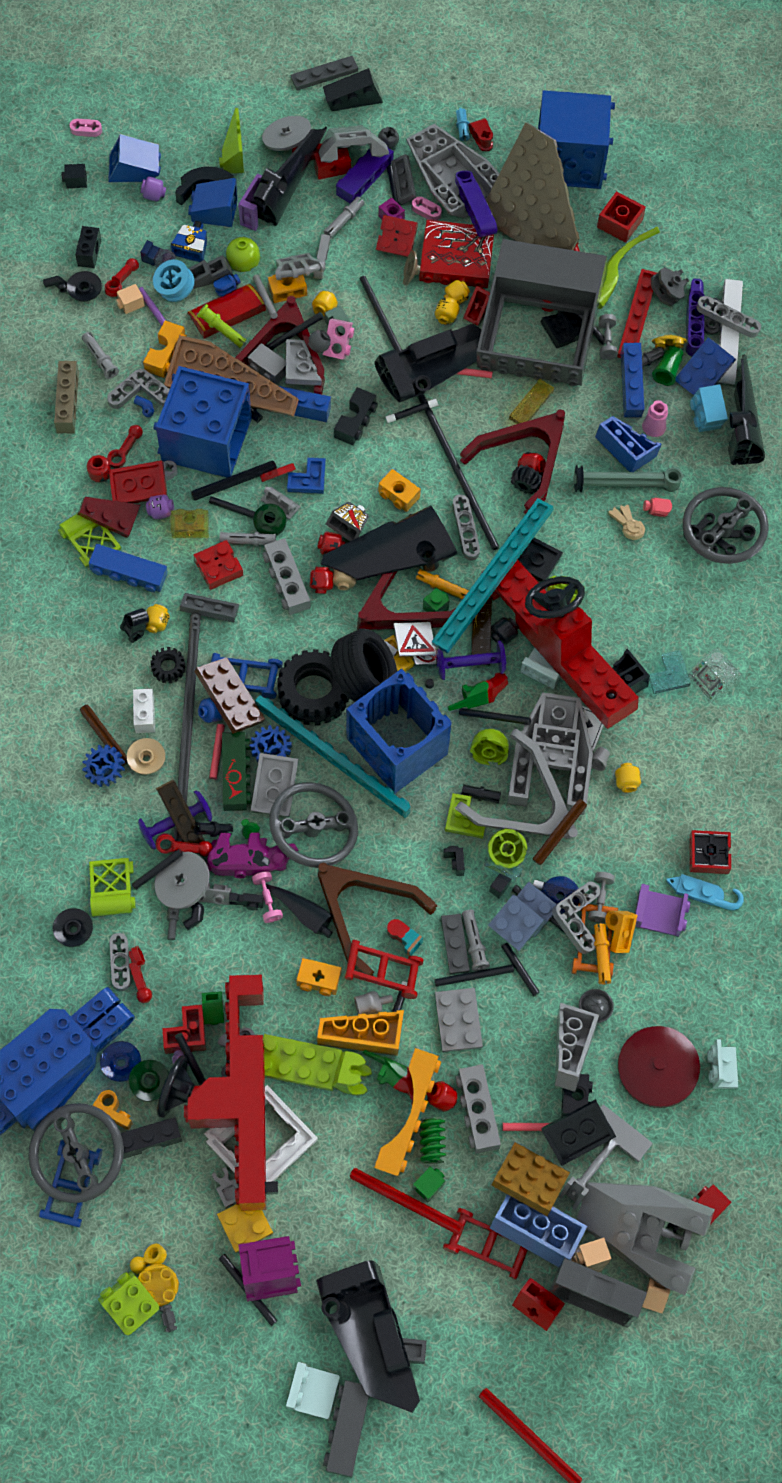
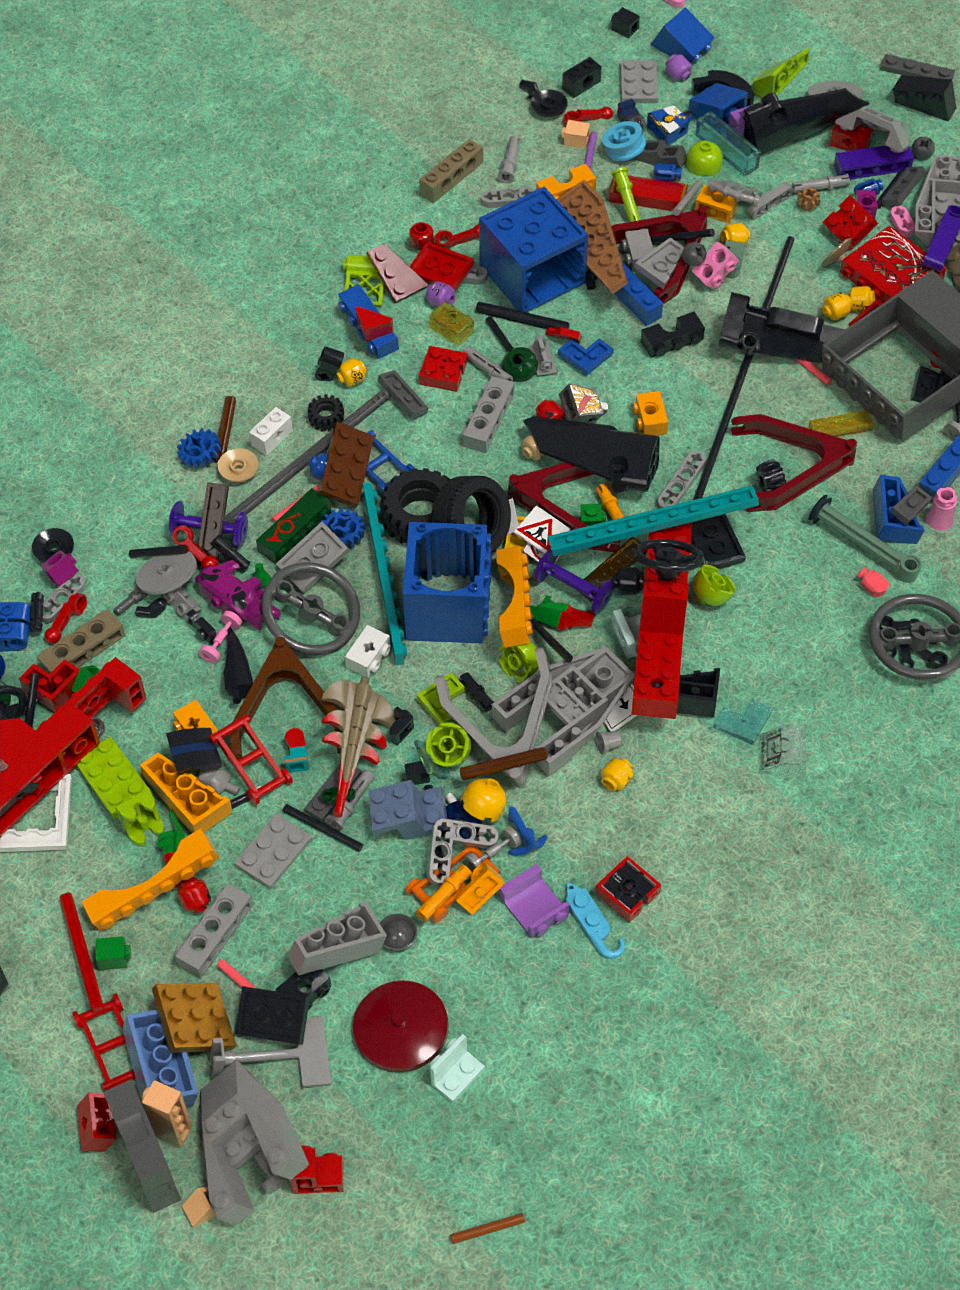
camera: 45 degrees right, 10 degrees down
(98, 940) = (60, 567): none -> magenta brick
(112, 901) = (103, 549): lime piece -> none
(117, 988) = (36, 612): none -> black axle
(131, 220) = (639, 81): none -> light grey plate
(141, 569) = (373, 324): none -> red slope
(174, 954) = (93, 643): none -> dark tan brick
(260, 230) = (734, 147): none -> clear light blue brick
(321, 579) = (513, 435): red head -> none
(343, 996) = (193, 750): none -> black slope
(348, 236) = (809, 199): none -> medium nougat gear
(381, 834) = (368, 651): none -> white brick
(382, 193) = (870, 185): none -> blue arm
(410, 411) = (726, 362): black bar -> none
(421, 867) = (360, 709): none -> dark tan animal
(431, 1141) = (149, 922): green piece -> none
(465, 944) = (329, 795): none -> dark green arm
(473, 725) = (515, 622): none -> light orange arch
(520, 969) = (365, 856): black bar -> none
(533, 460) = (791, 467): red head -> none
(565, 867) = (484, 799): none -> yellow cylinder
(620, 871) = (526, 833): none -> blue piece
(631, 528) = (831, 583): tan piece -> none
(641, 432) = (911, 505): none -> dark grey plate

